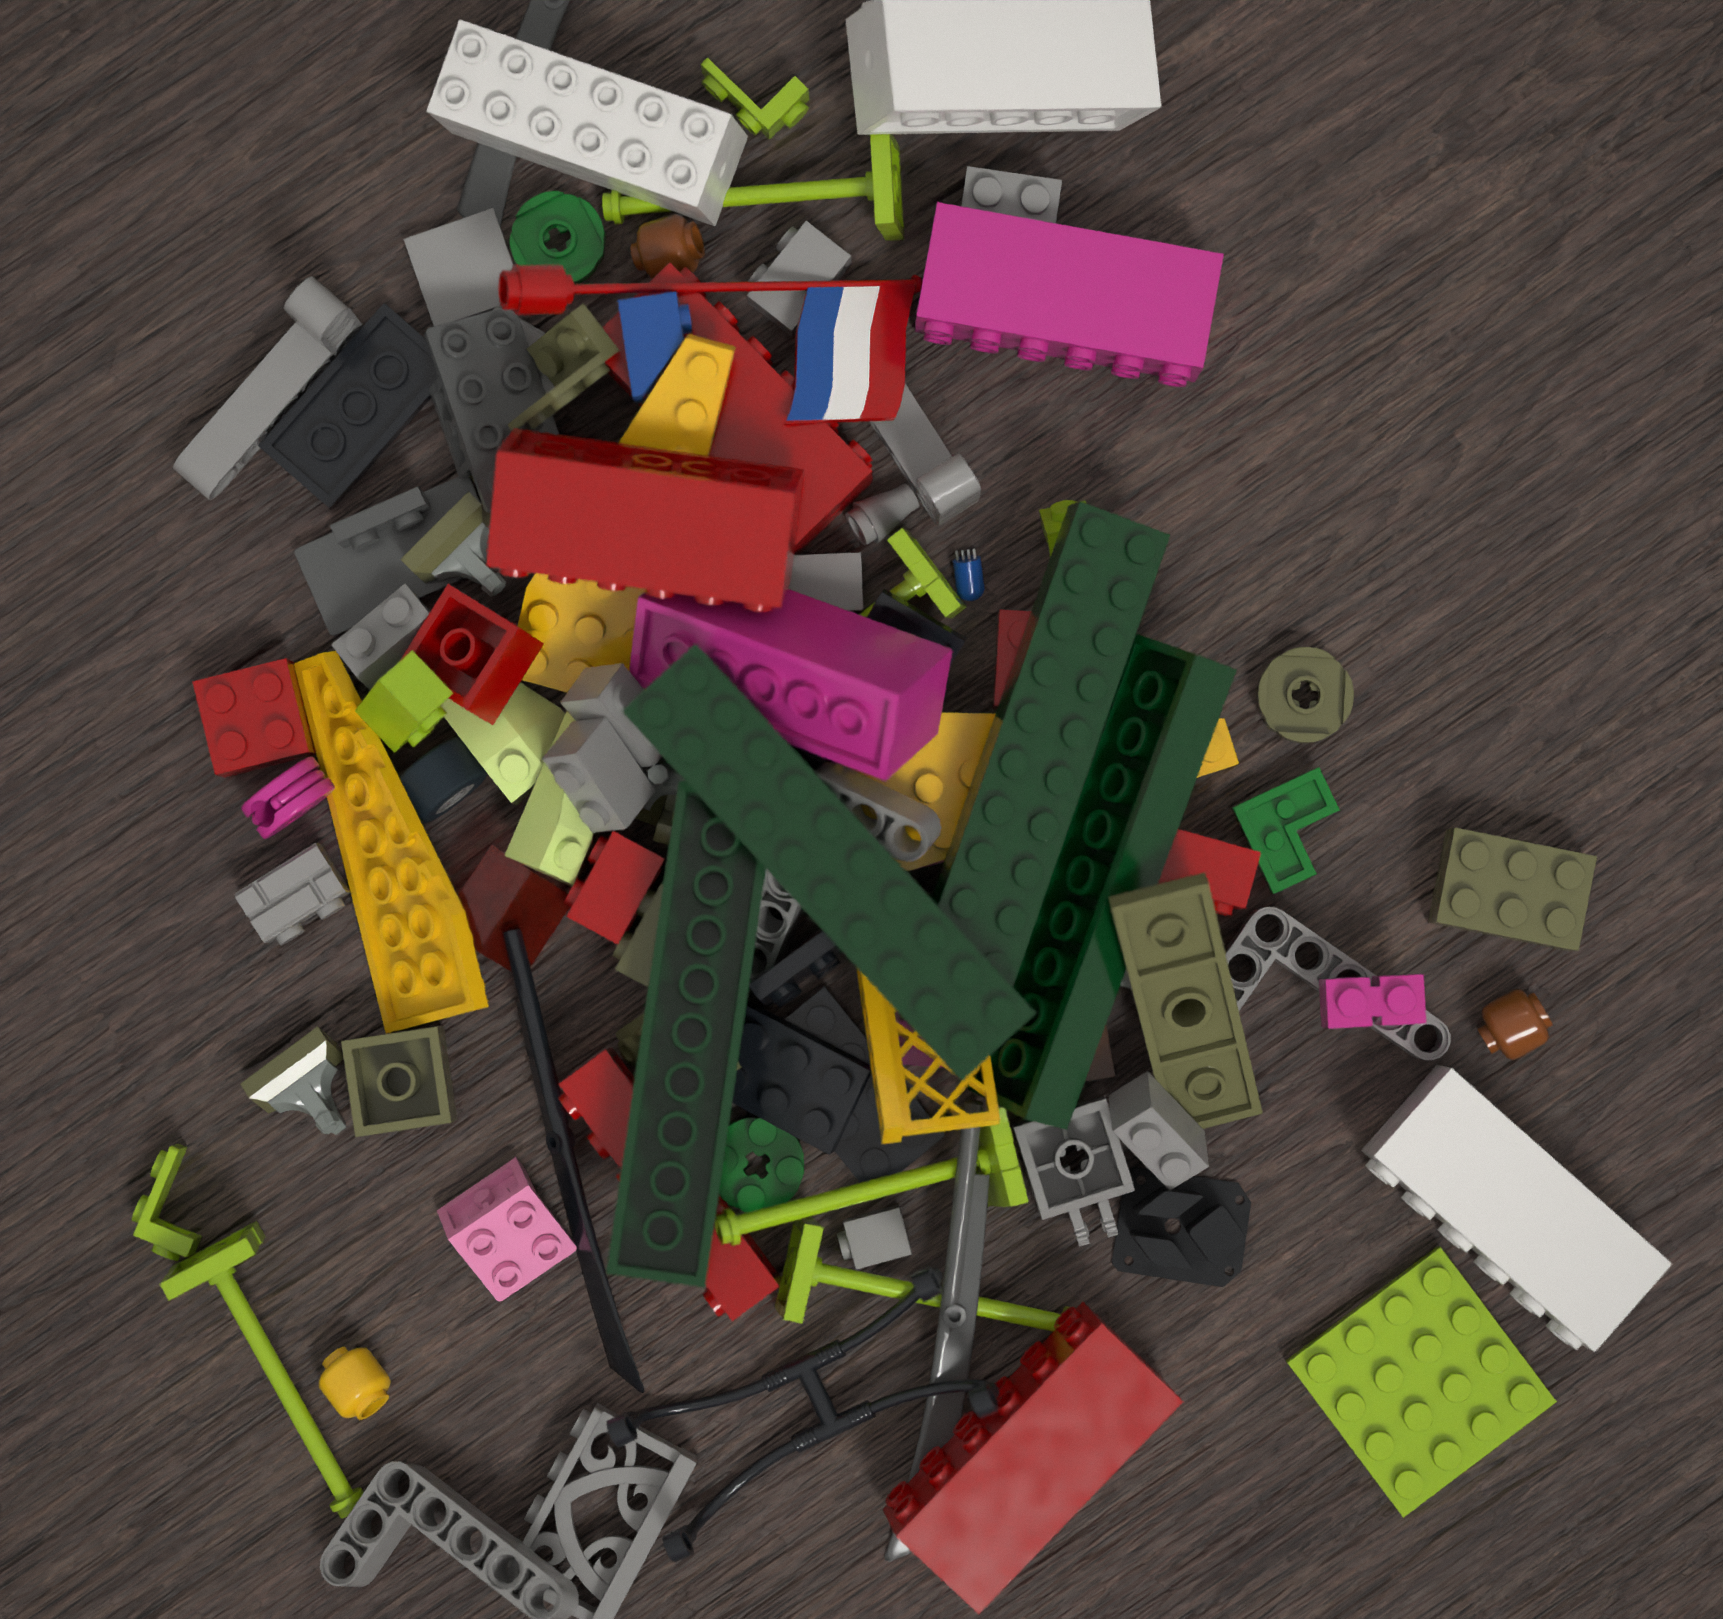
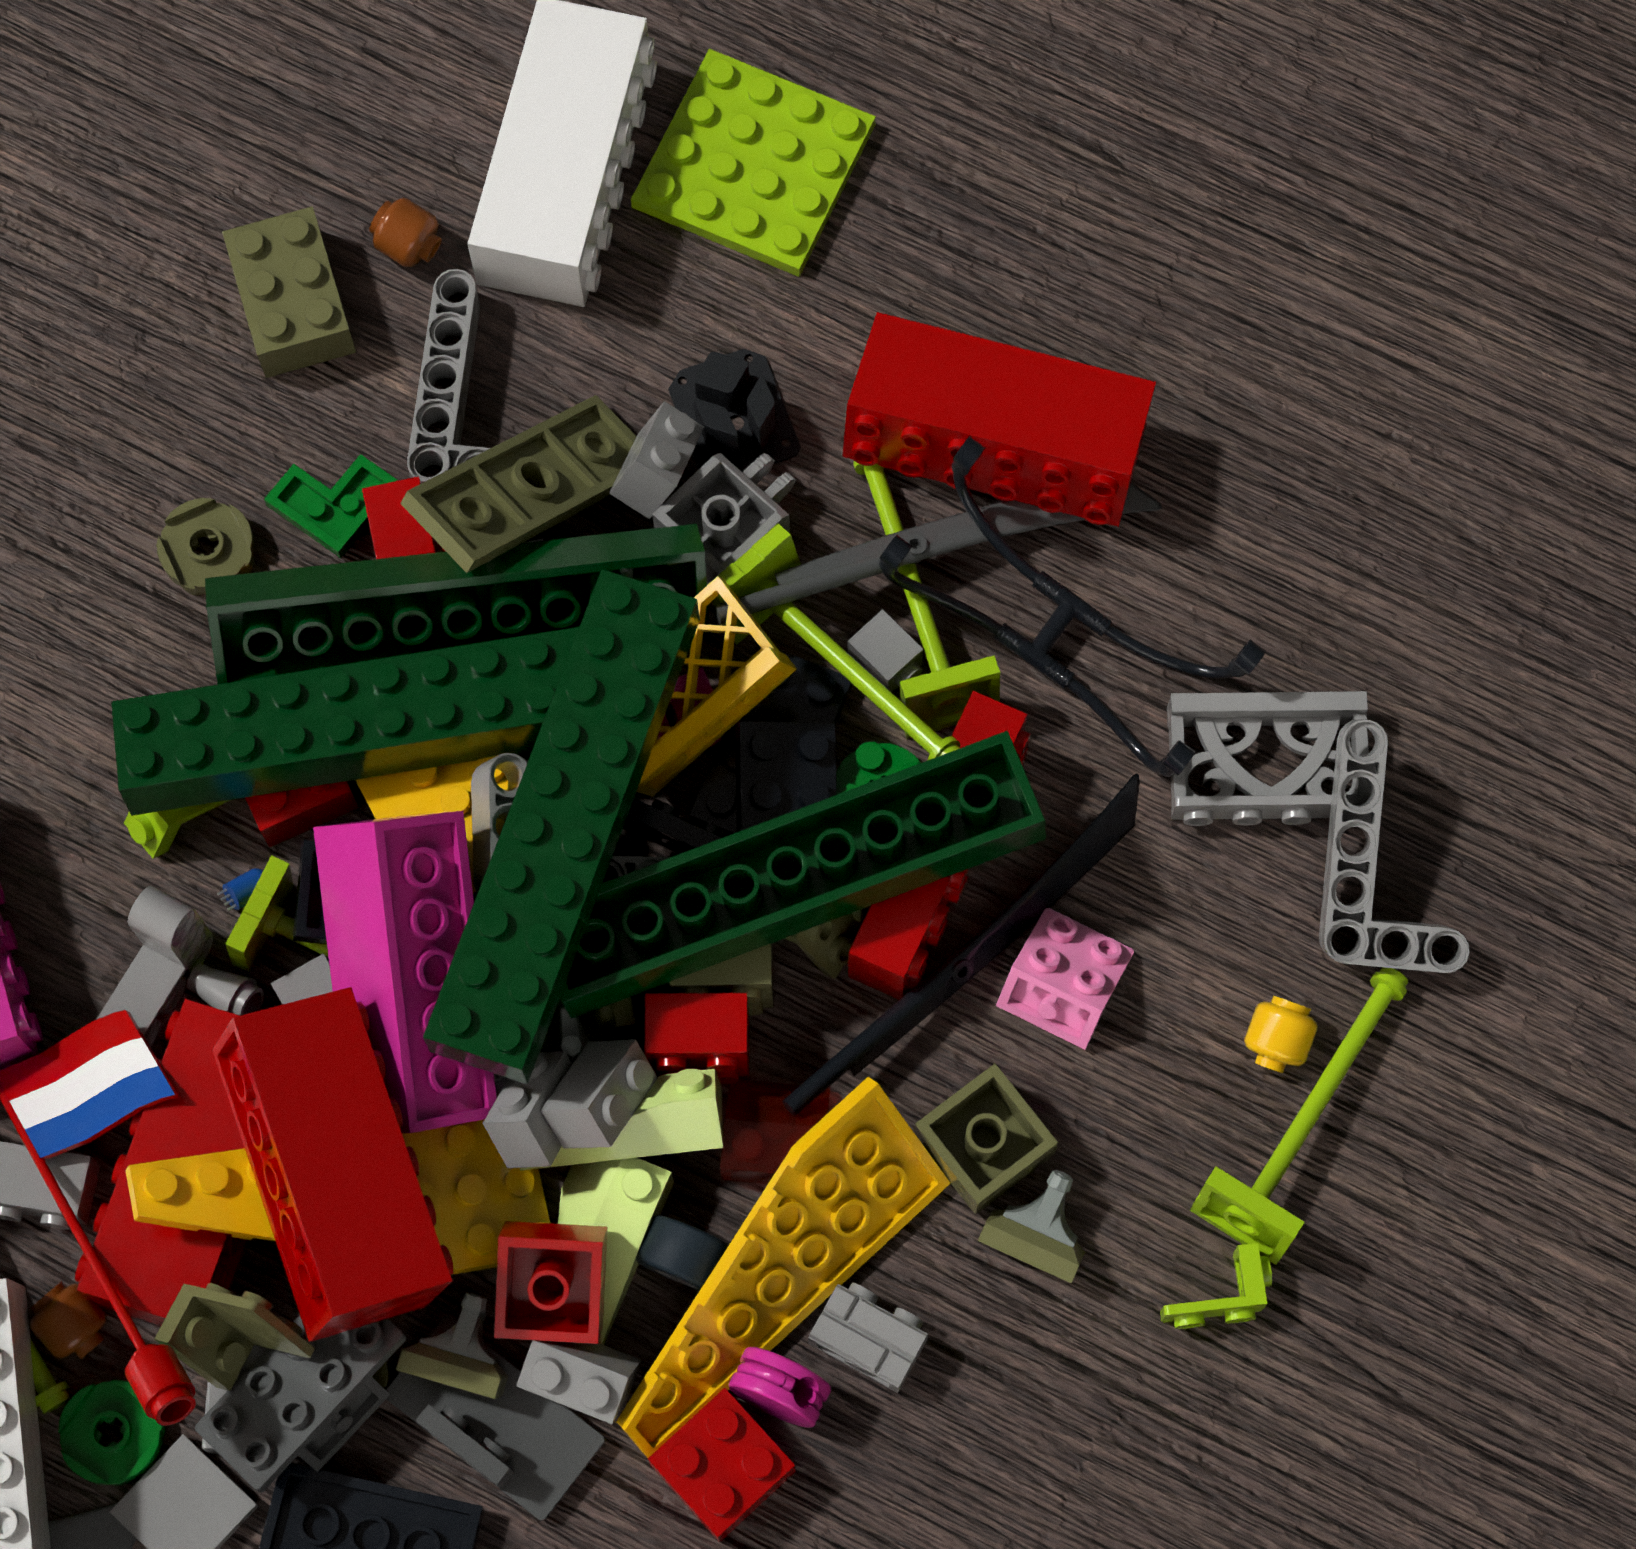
camera: 120 degrees left, 15 degrees down
(405, 703) = (628, 1311): lime brick -> none
(652, 335) = (158, 1258): blue slope -> none
(1353, 1002) = (453, 348): dark pink piece -> none

